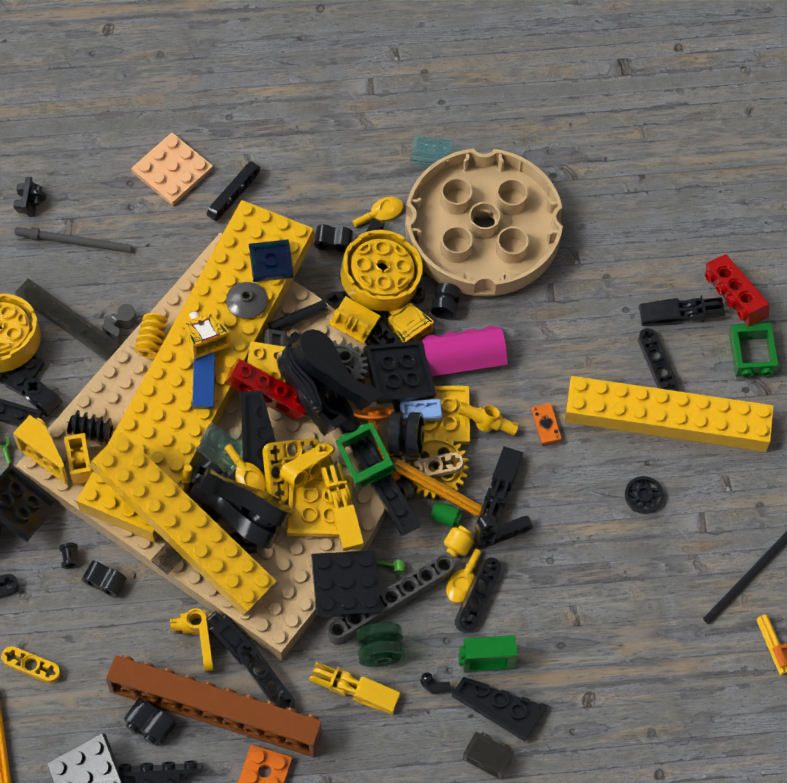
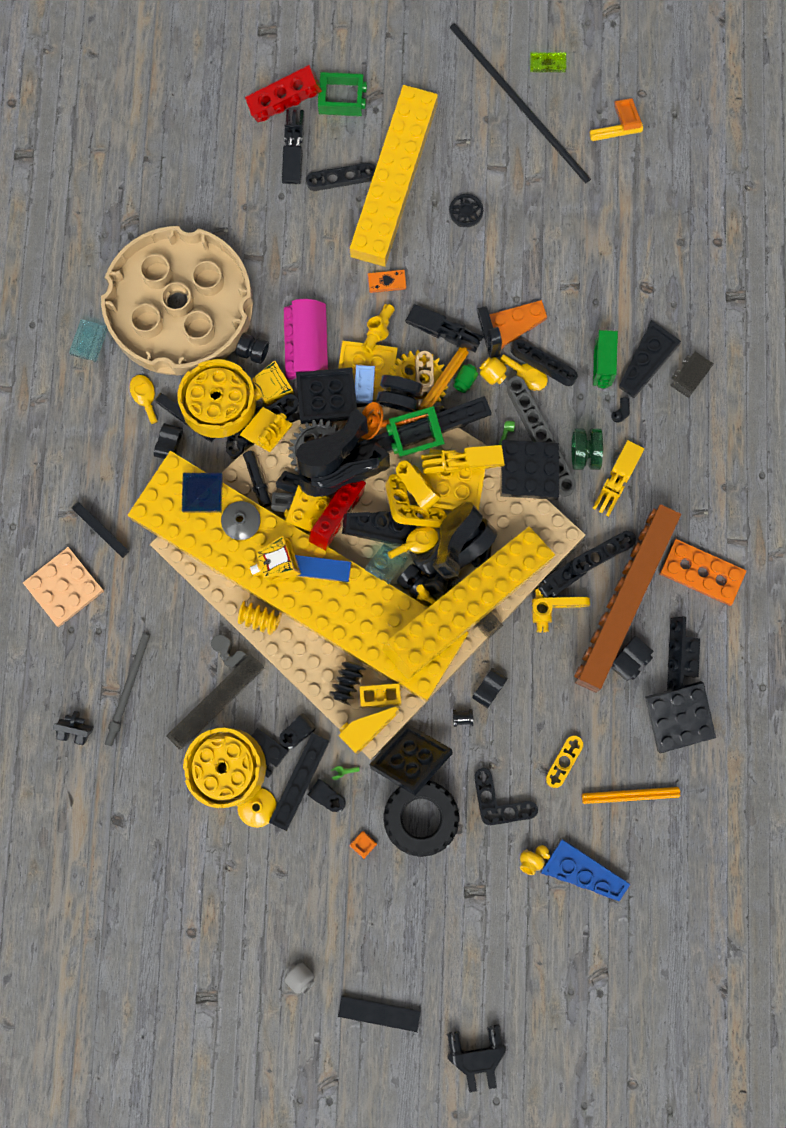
camera: 75 degrees left, 15 degrees up
(522, 561) = (518, 320): none -> orange wing

